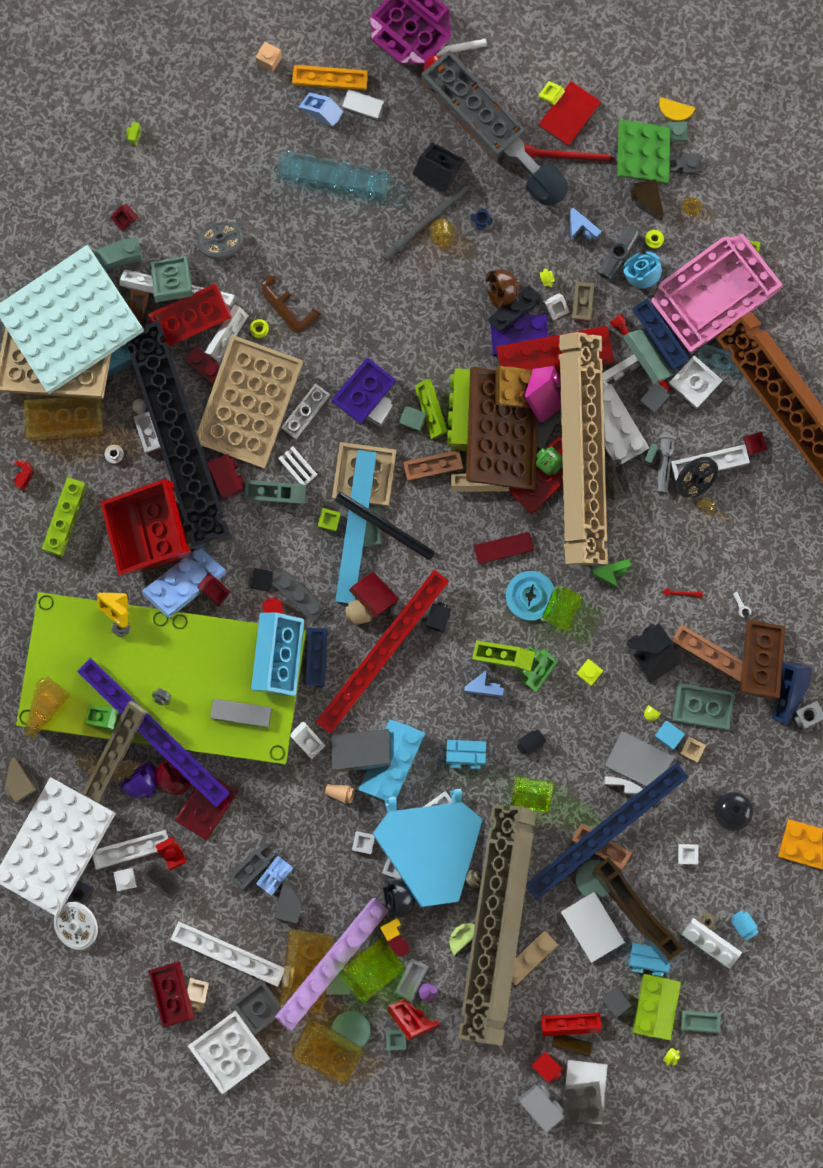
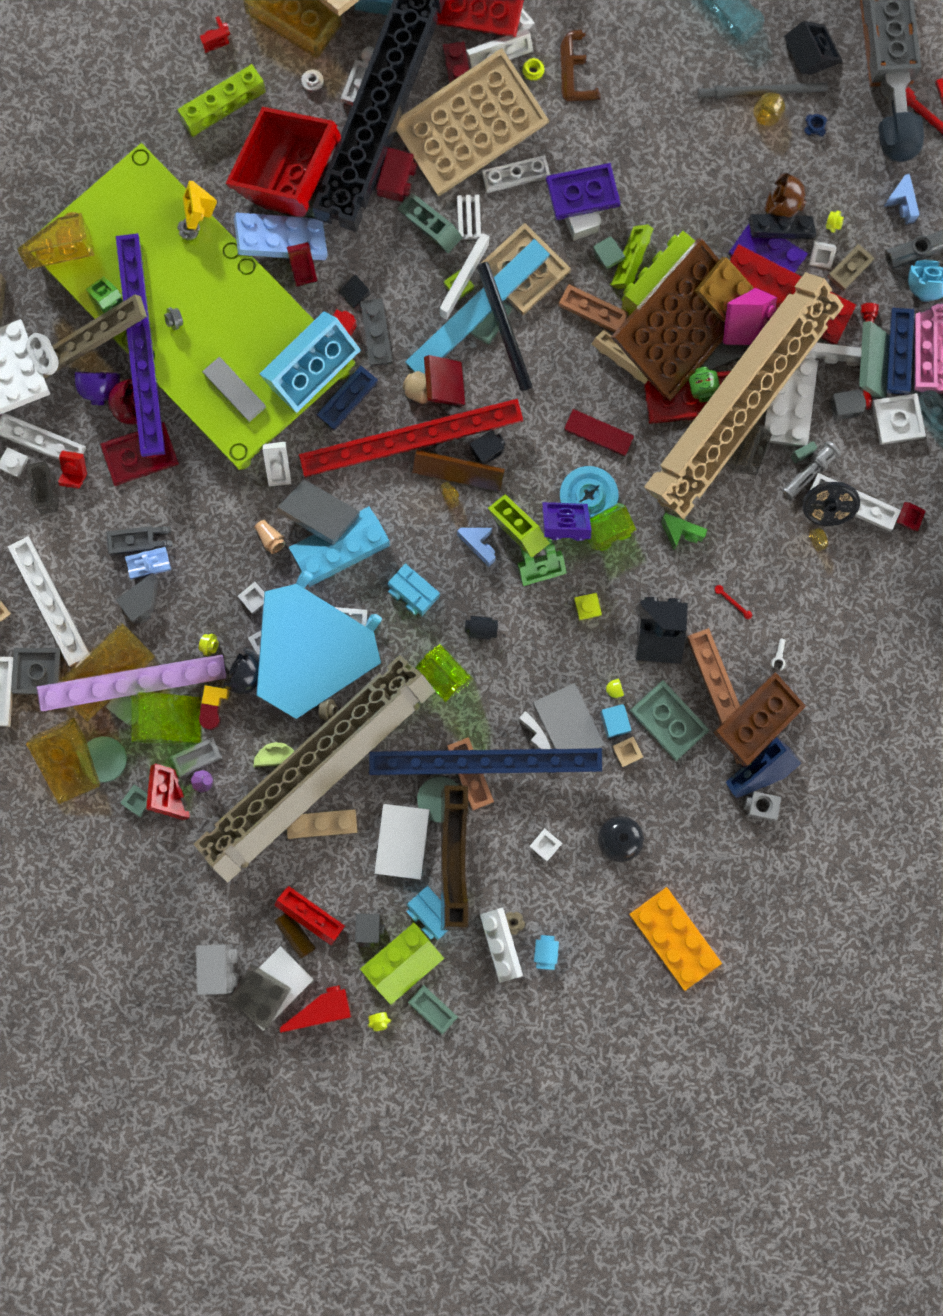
camera: 30 degrees right, 0 degrees up
(89, 790) = (43, 356): none -> white plate
(330, 512) = (464, 276): none -> white tile
(358, 898) = (208, 644): none -> neon yellow plate
(431, 648) = (458, 470): none -> reddish brown tile
(438, 668) = (450, 494): none -> clear yellow tile
(532, 627) = (566, 521): none -> dark purple plate
(547, 1067) = (254, 937): red brick -> none
(629, 1079) = (324, 1009): none -> red slope

